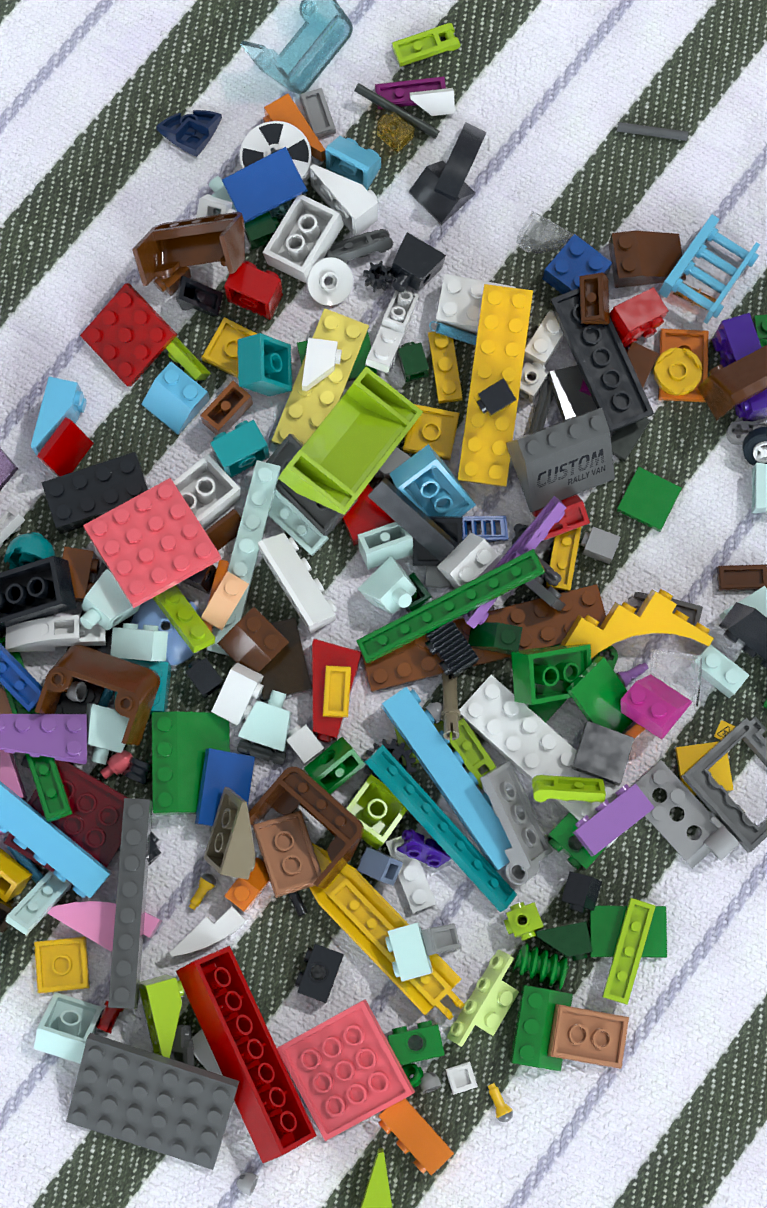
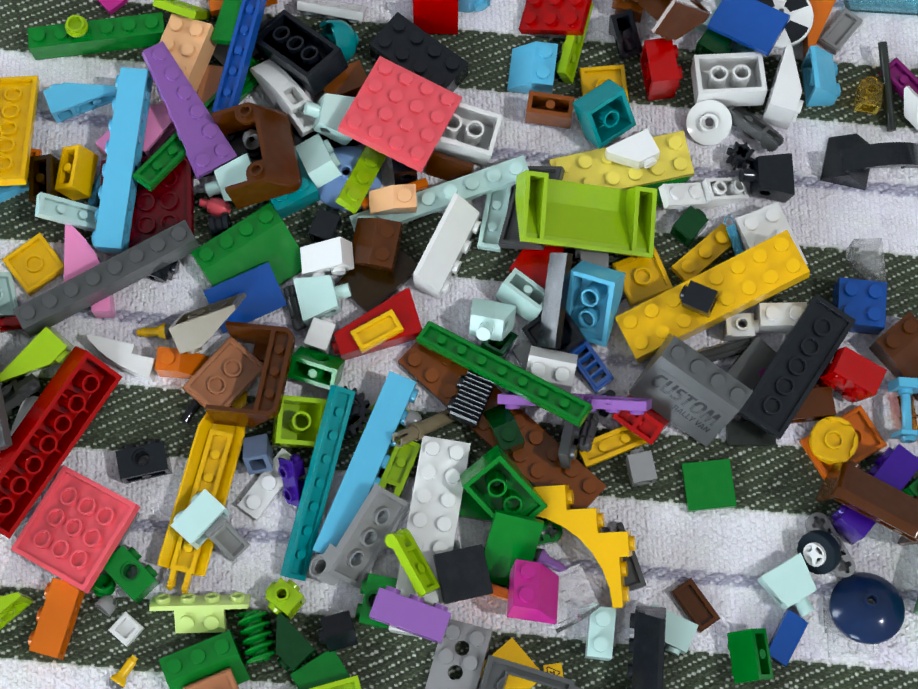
camera: 60 degrees right, 5 degrees down
(240, 448) = (524, 136): teal brick -> none
(594, 299) = (841, 329): reddish brown slope -> none

